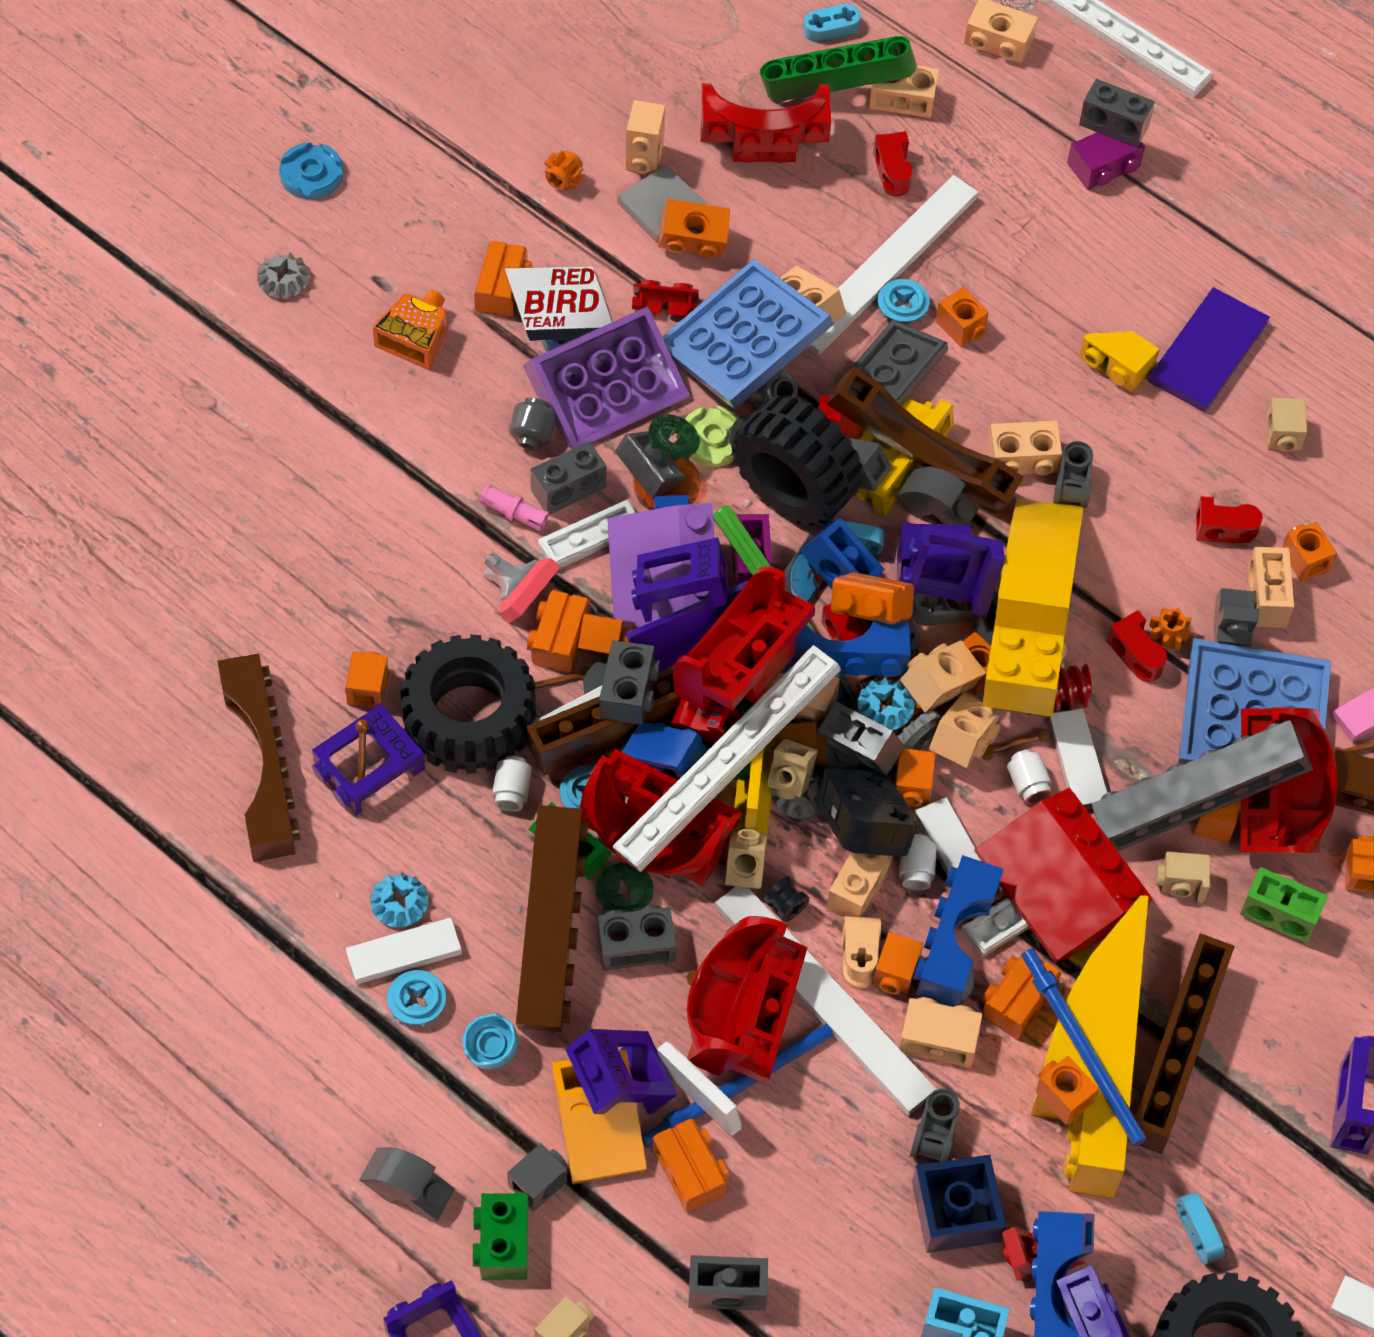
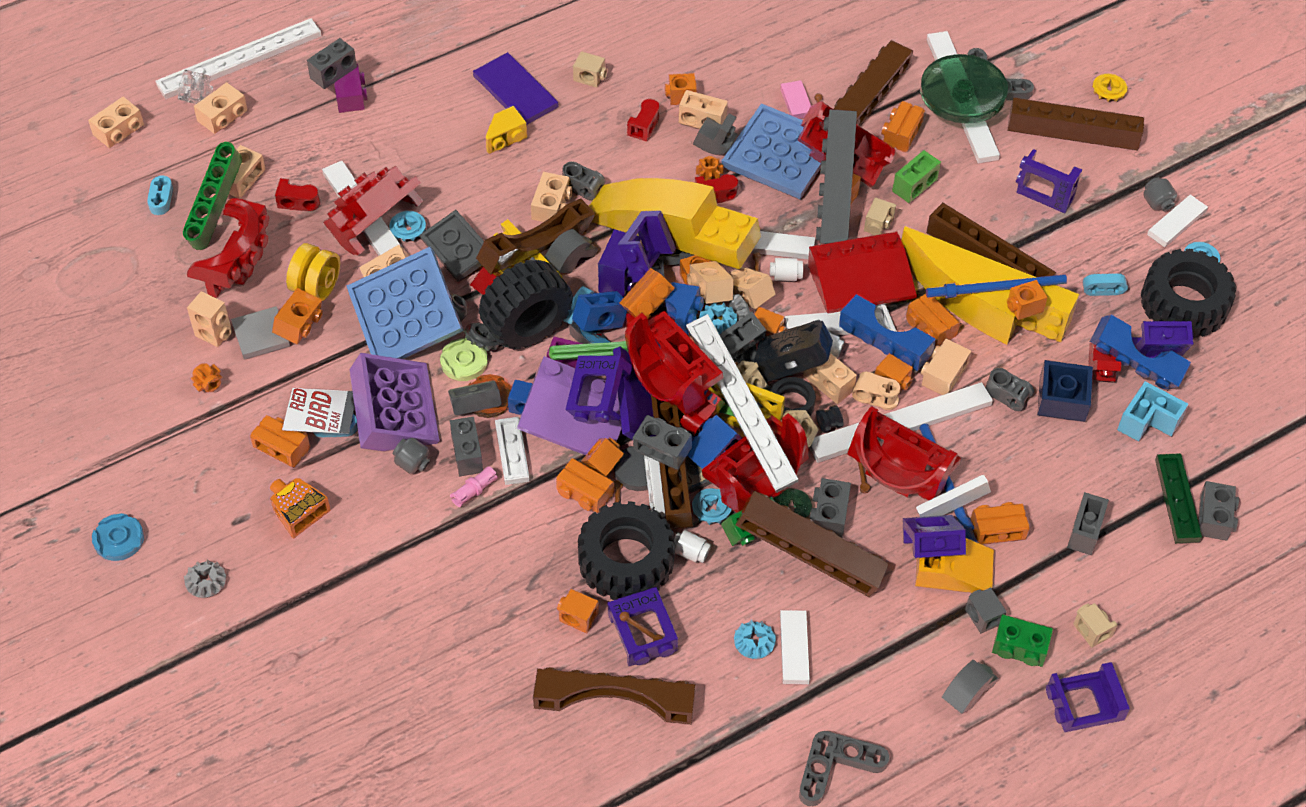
camera: 70 degrees left, 5 degrees down
(258, 1041) = (835, 753): none -> dark grey beam
(417, 983) = (836, 638): medium azure gear -> none
(490, 1041) = (883, 608): medium azure hair -> none
(518, 582) = (540, 496): piece -> none
(665, 426) = (464, 375): clear green gear -> none
(677, 297) = (347, 344): red hinge -> none
(765, 218) = (313, 270): none -> yellow wheel
(792, 867) = (799, 386): none -> black tyre
(907, 237) = (368, 201): none -> piece
(952, 315) = (437, 197): orange brick -> none

